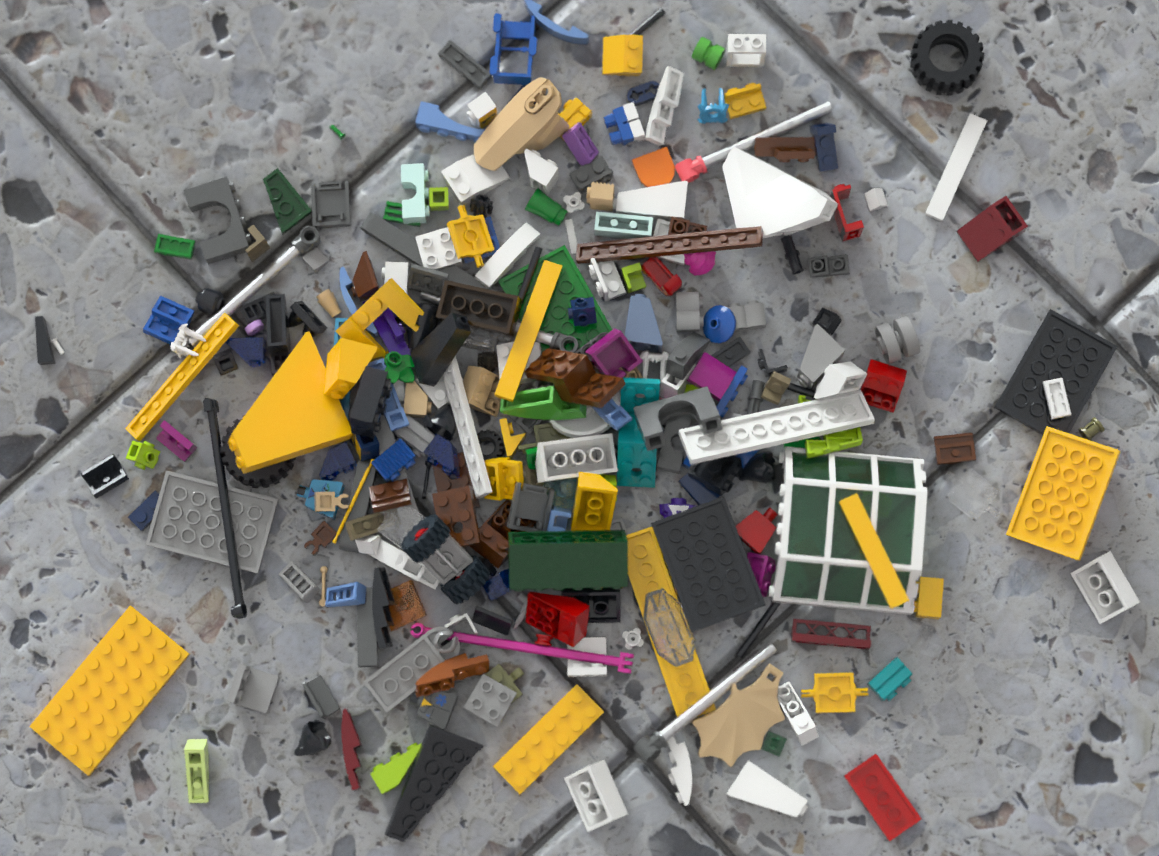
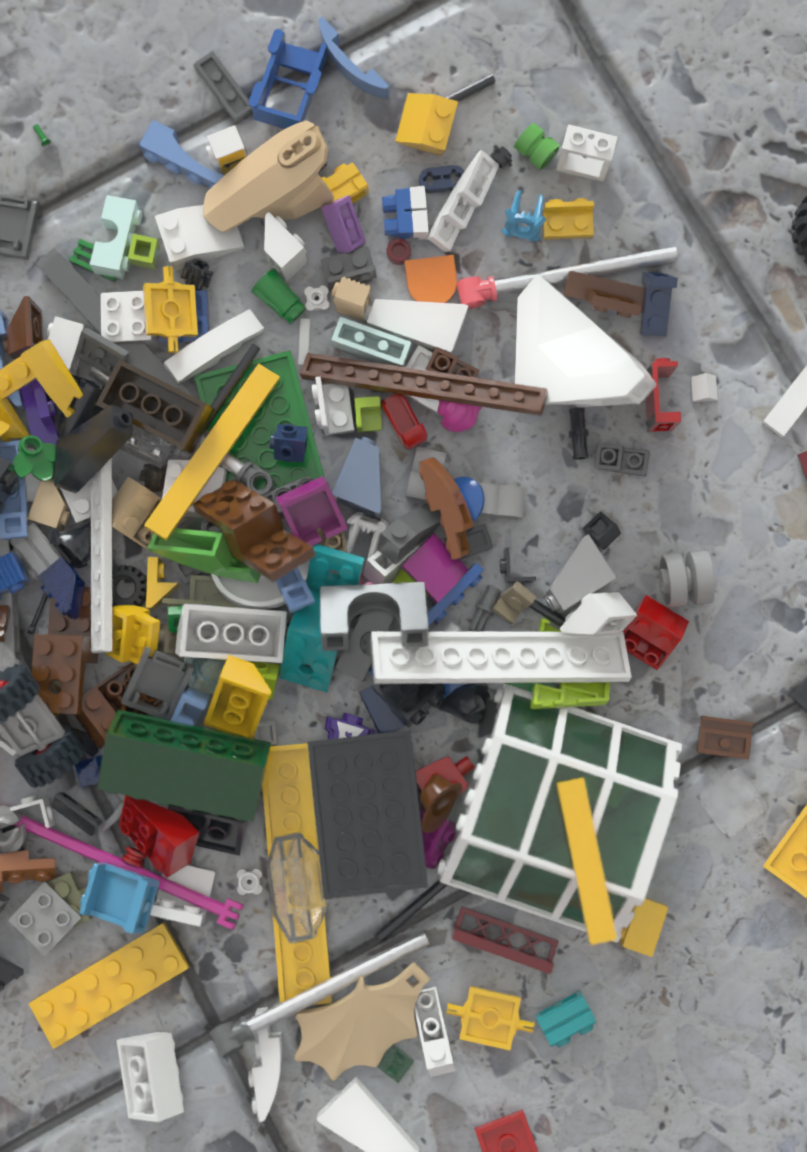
camera: 10 degrees right, 5 degrees up
(542, 667) = (119, 897): none -> dark azure panel
(625, 153) = (398, 251): none -> dark red tile
(684, 66) = (501, 156): none -> black plate
(707, 322) = (444, 495): none -> dark orange slope
(757, 541) = (438, 800): none -> reddish brown piece

